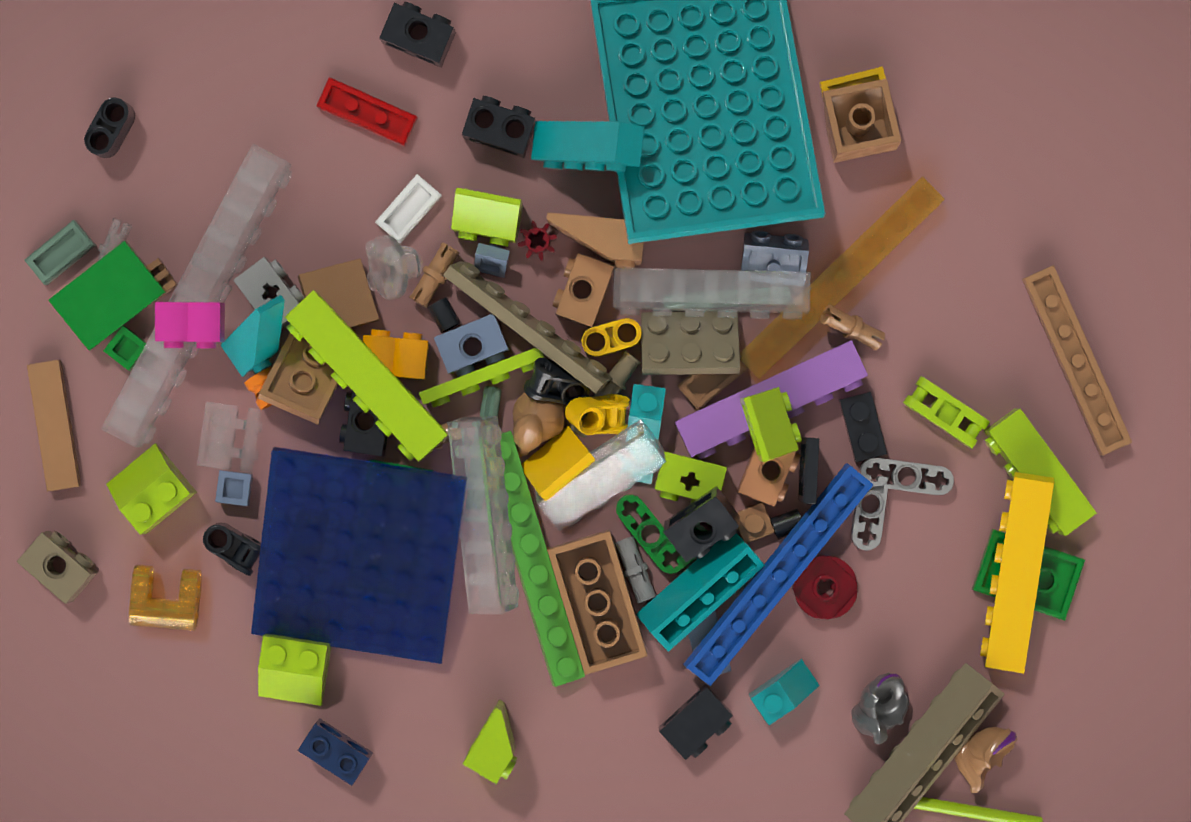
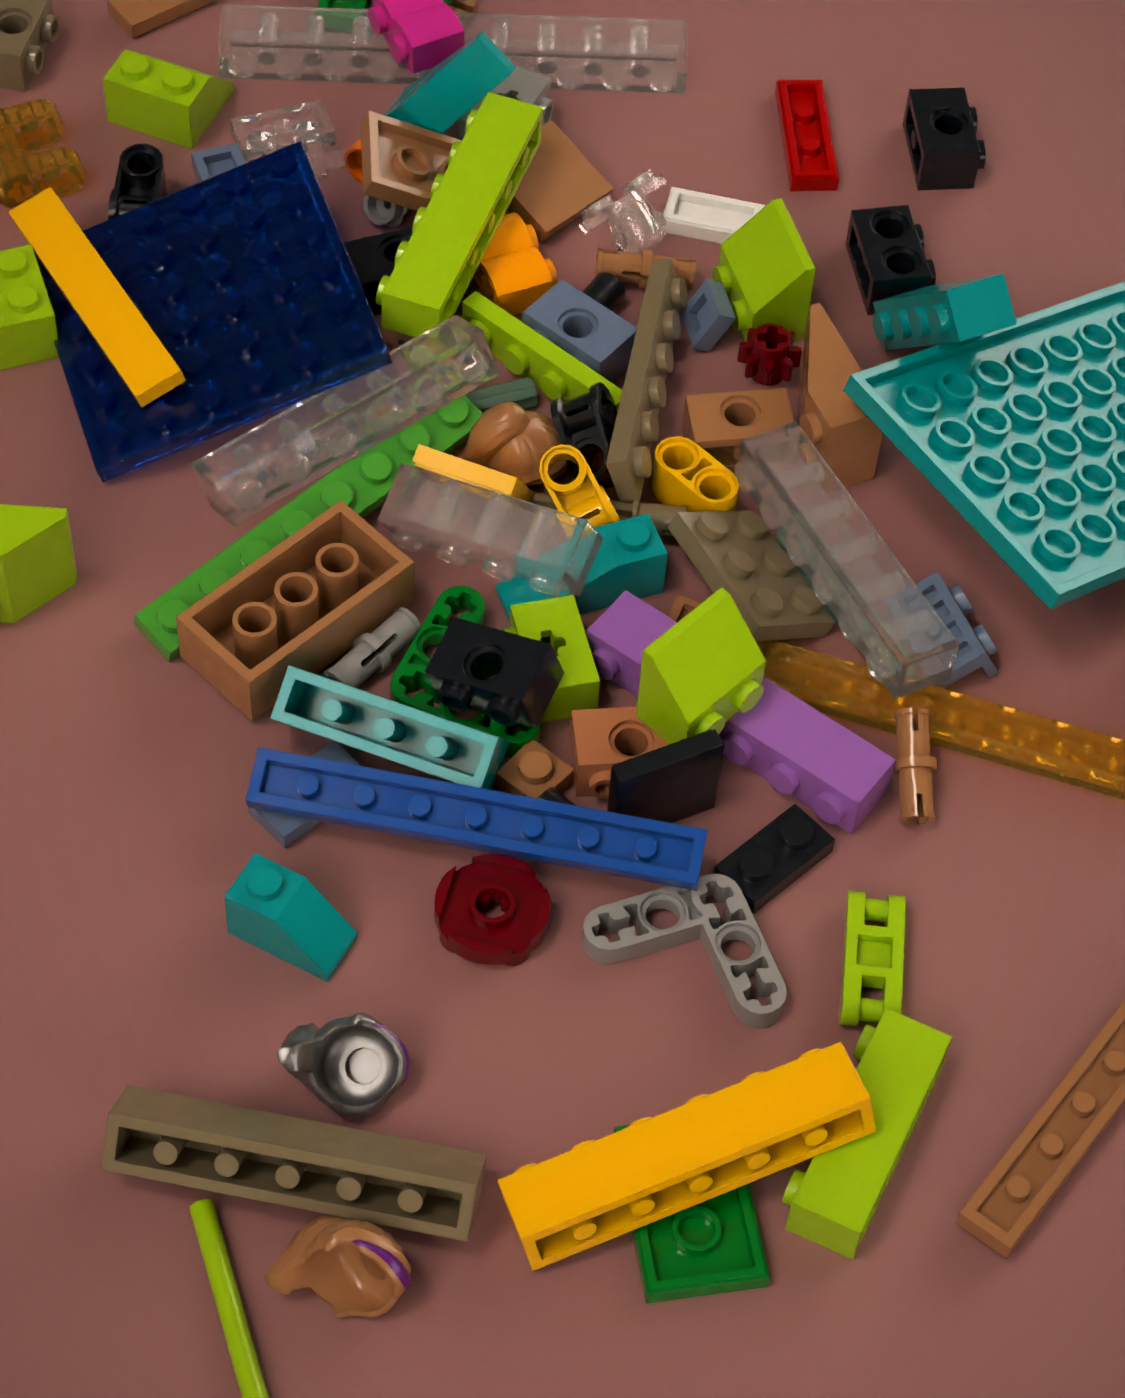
camera: 60 degrees right, 35 degrees down
(321, 615) = (97, 297): none -> yellow tile
(696, 722) = (175, 819): black brick -> none

